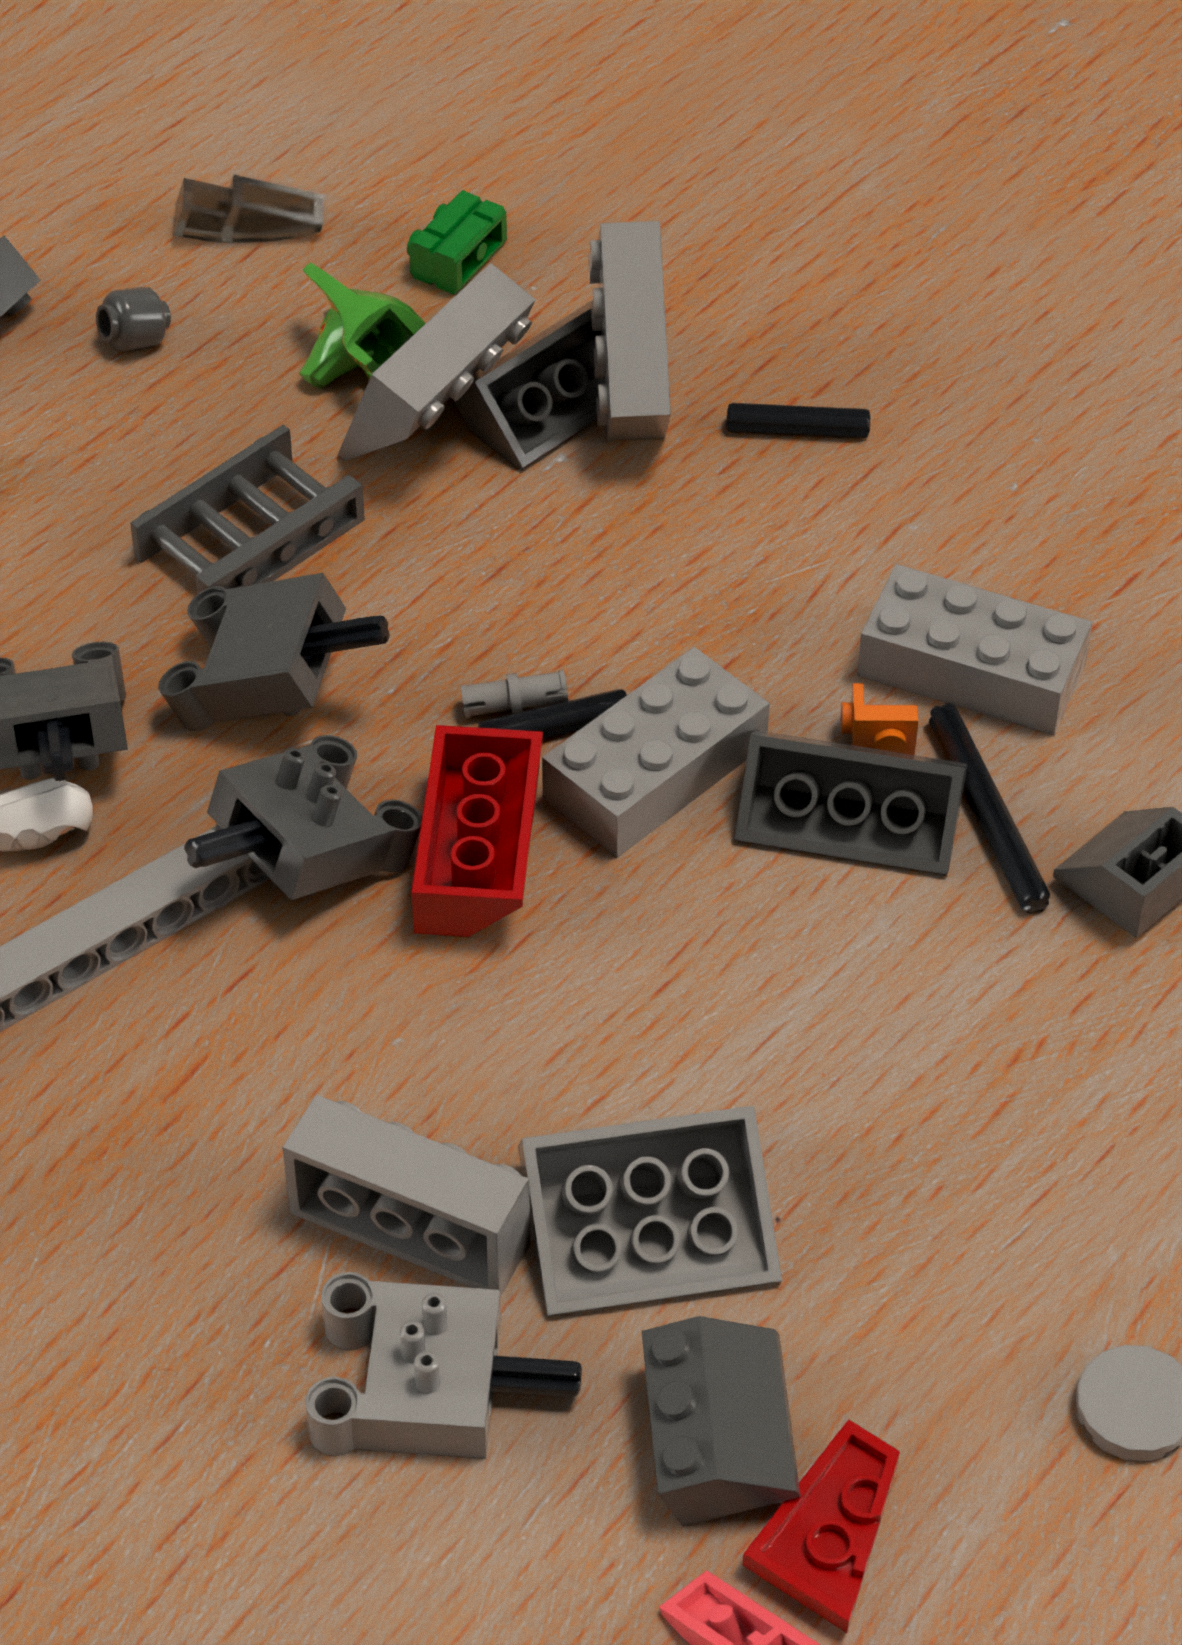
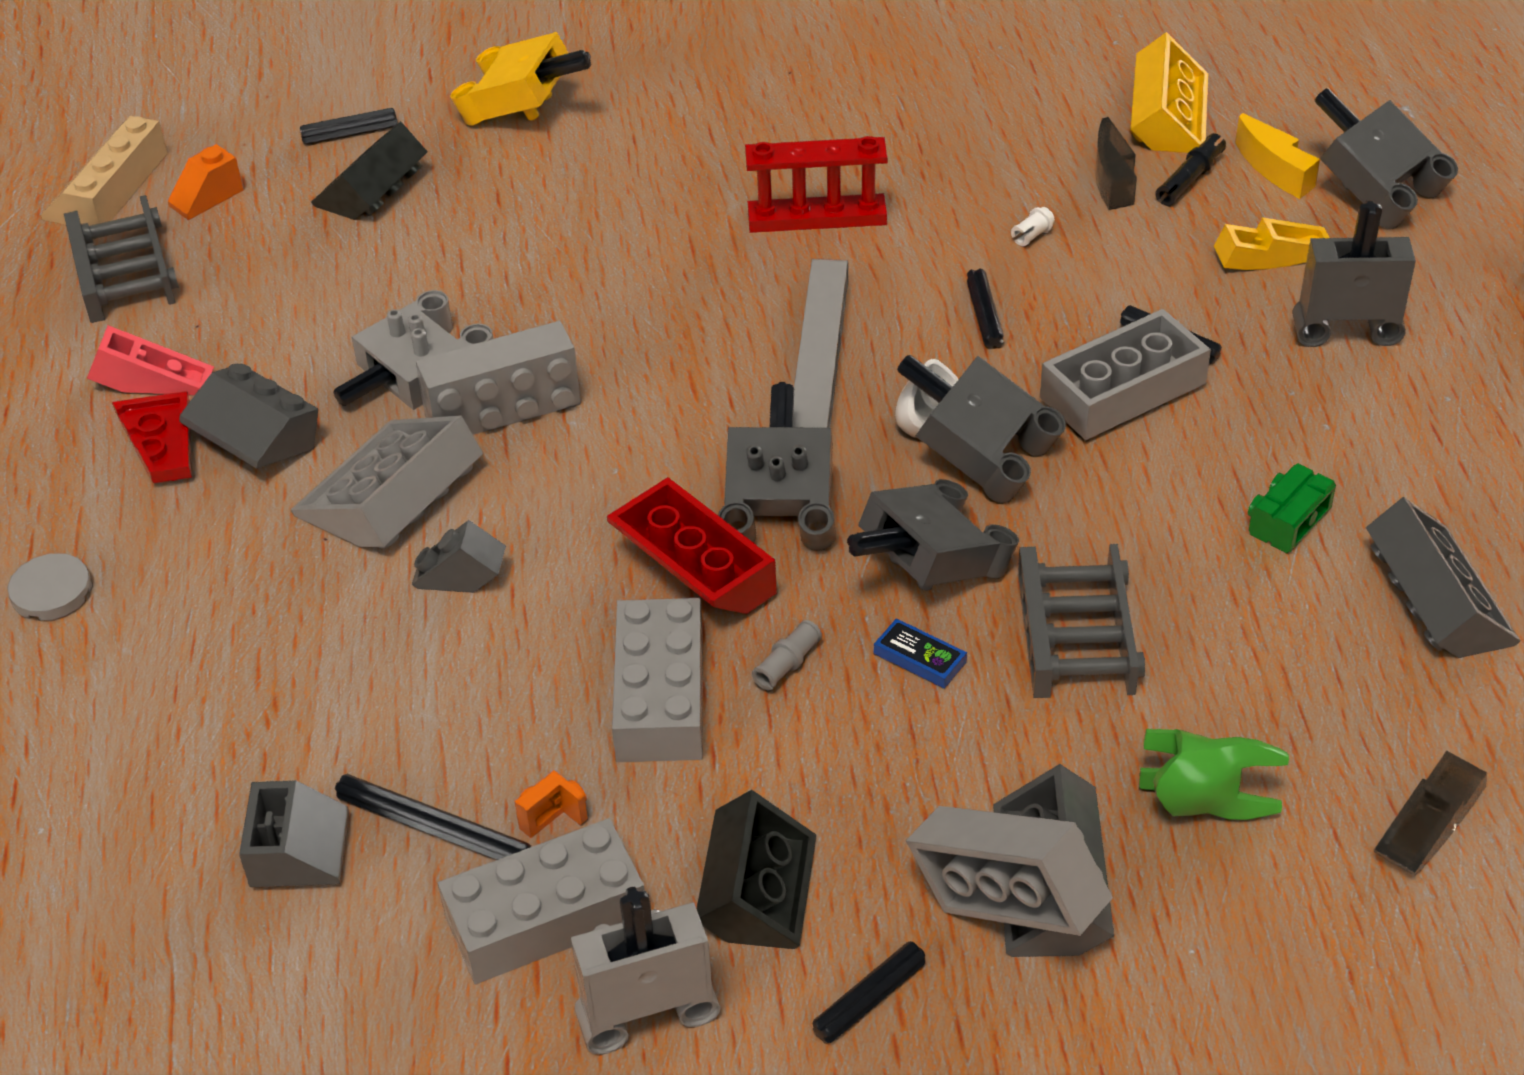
camera: 135 degrees right, 5 degrees down
(133, 319) = (1350, 675): dark grey head -> none
(402, 602) = (920, 653): none -> tile
(439, 362) = (1091, 753): light grey slope -> none
(457, 241) = (1275, 914): green brick -> none
(559, 717) = (740, 675): black axle -> none
(693, 1032) = (460, 561): none -> dark grey slope
(785, 545) = (756, 874): none -> pearl dark grey slope
(850, 801) = (517, 749): dark grey slope -> none
(986, 472) = (642, 969): none -> light grey piece

